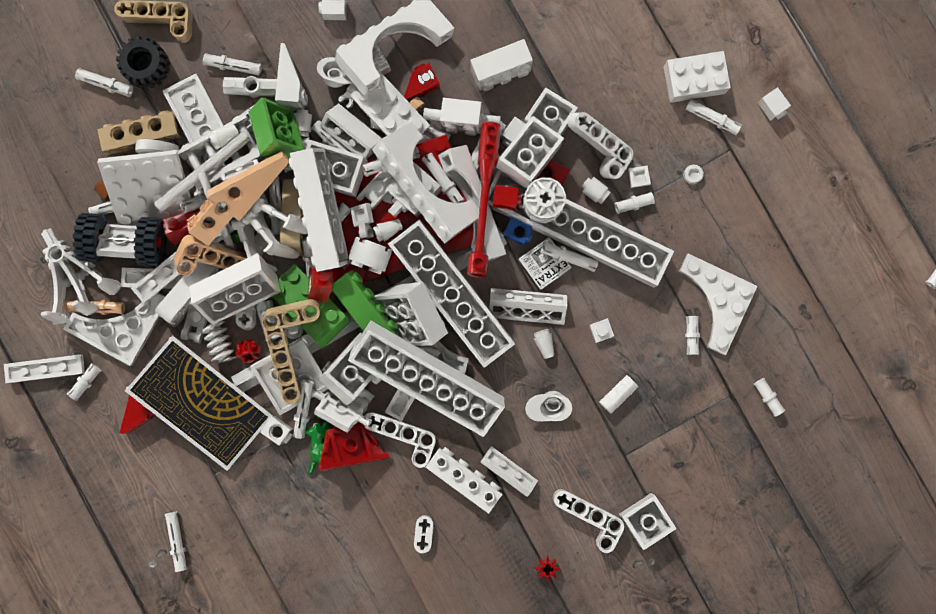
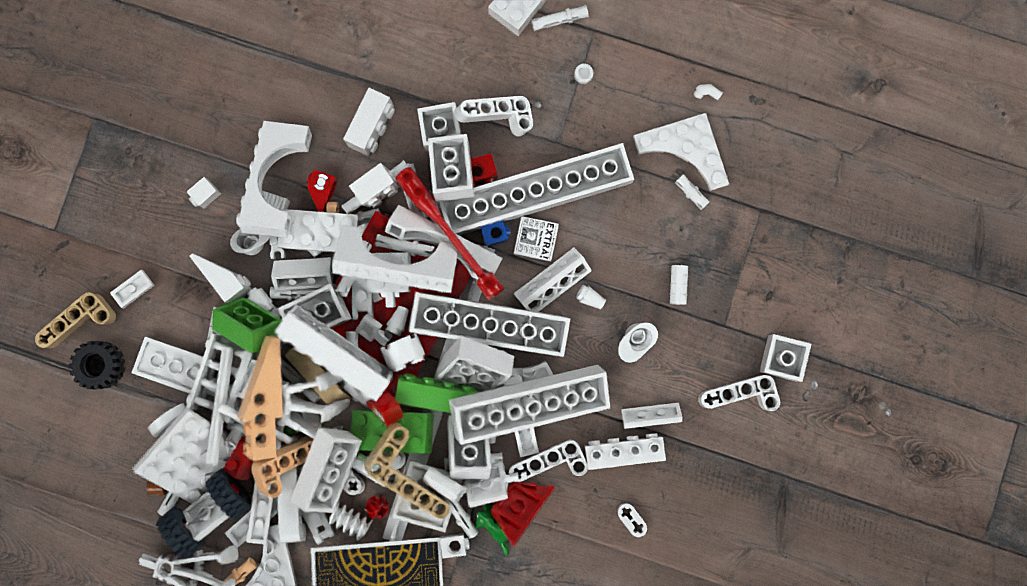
camera: 40 degrees left, 0 degrees up
(109, 133) = (120, 441): tan brick -> none
(111, 85) = (88, 404): white pin -> none
(218, 30) = (132, 289): none -> white plate
(223, 136) = (211, 365): white cone -> none
(232, 64) = (160, 308): white pin -> none
(240, 86) = (187, 315): white piece -> none
(309, 379) = (443, 484): none -> white axle
(506, 197) = (464, 216): red brick -> none
(512, 131) = (423, 163): white brick -> none
(533, 204) = (492, 204): white wheel -> none
(551, 572) = (739, 460): red gear -> none
(562, 253) = (543, 220): white pin -> none
(595, 190) = (523, 150): white brick -> none
(601, 330) = (623, 249): white plate -> none
(634, 203) = (560, 134): white pin -> none
(639, 176) = (546, 111): white plate -> none
(769, 397) = (788, 186): white pin -> none
(774, 269) = (706, 89): none -> white arm

